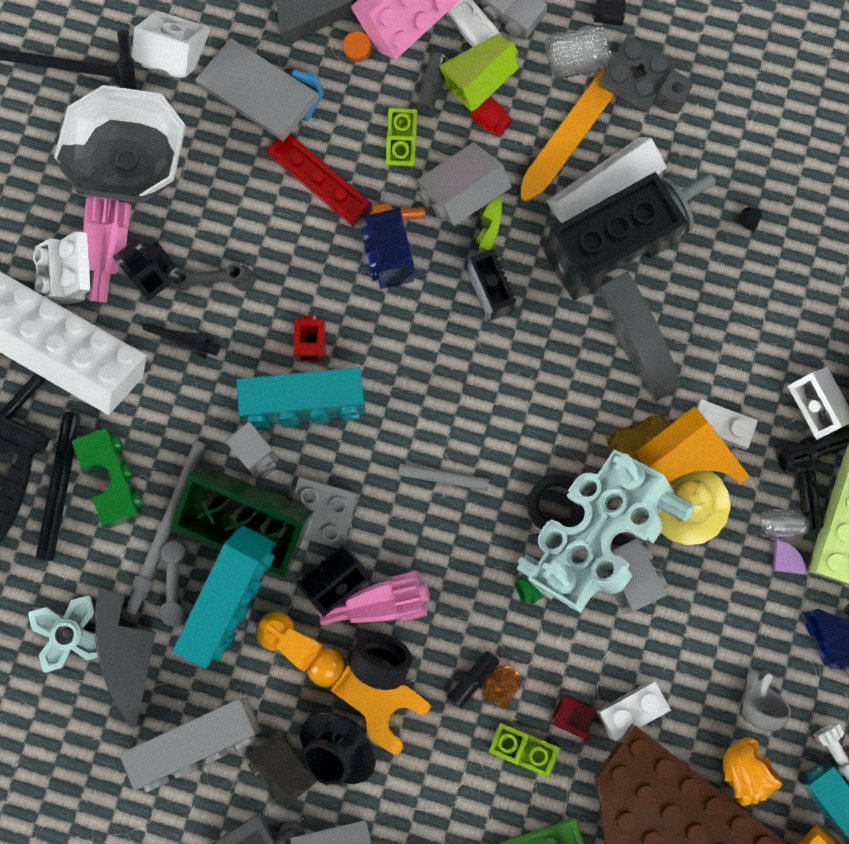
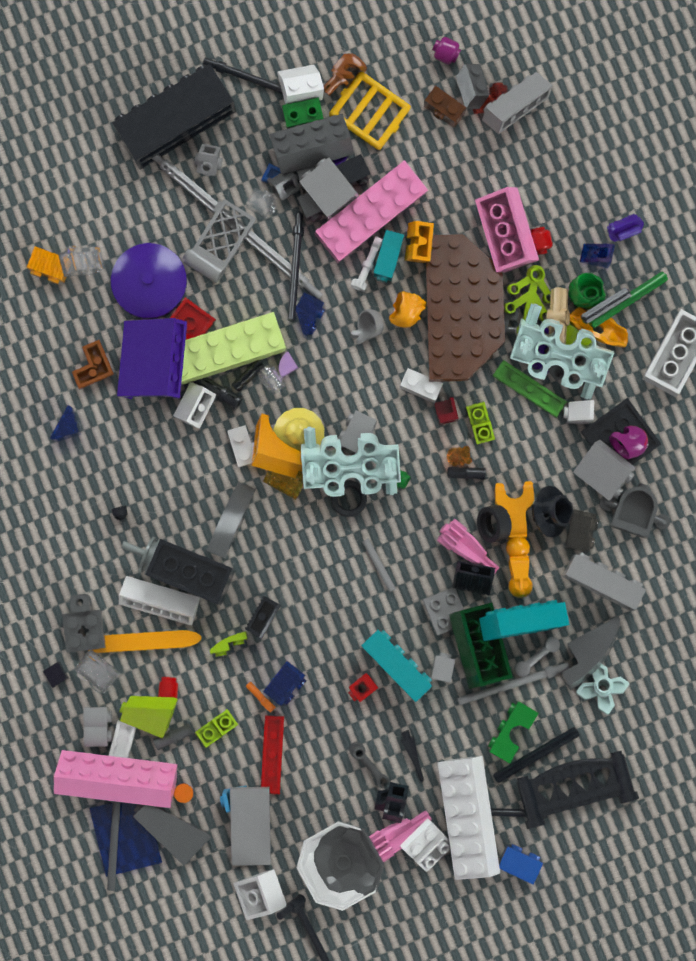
camera: 120 degrees left, 5 degrees up
(463, 184) = (220, 673): light grey brick -> none

